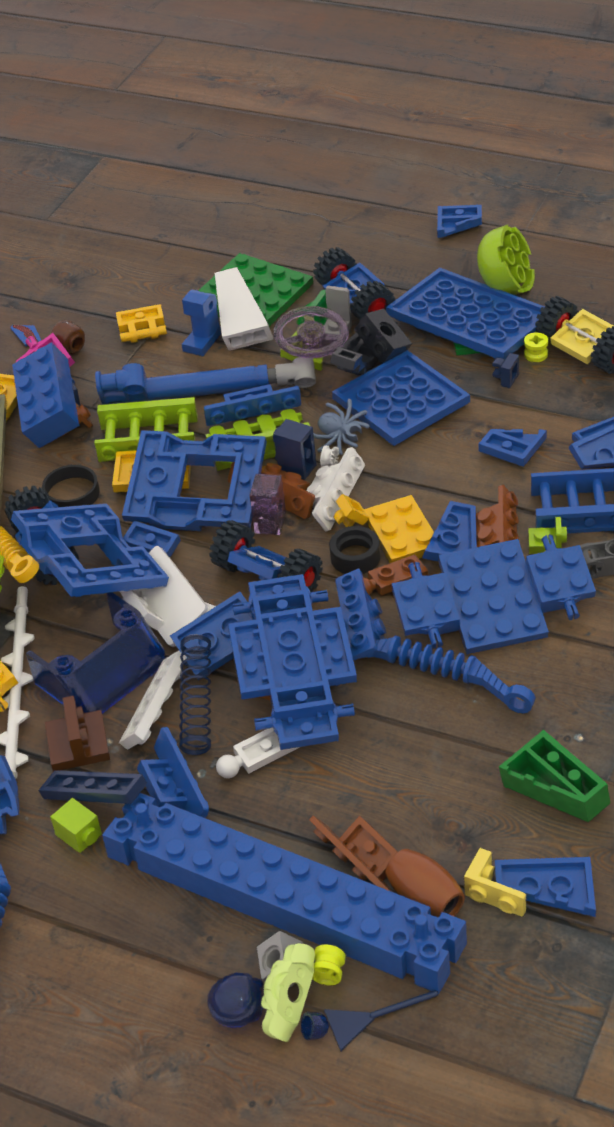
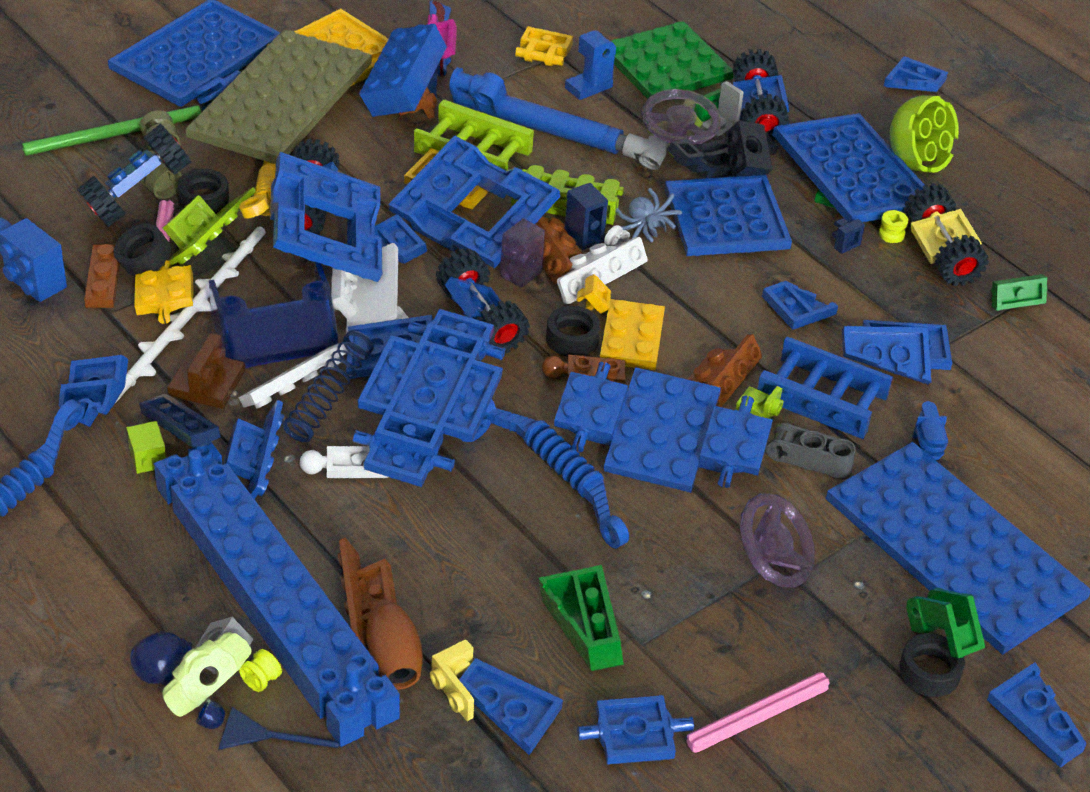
camera: 20 degrees right, 0 degrees up
(69, 335) = (469, 29): reddish brown head -> none
(72, 471) = (370, 147): black tyre -> none
(239, 314) = (634, 71): white slope -> none
(251, 403) = (583, 159): blue bracket -> none
(359, 614) = (528, 389): blue bracket -> none
(454, 531) = (675, 357): blue wing -> none

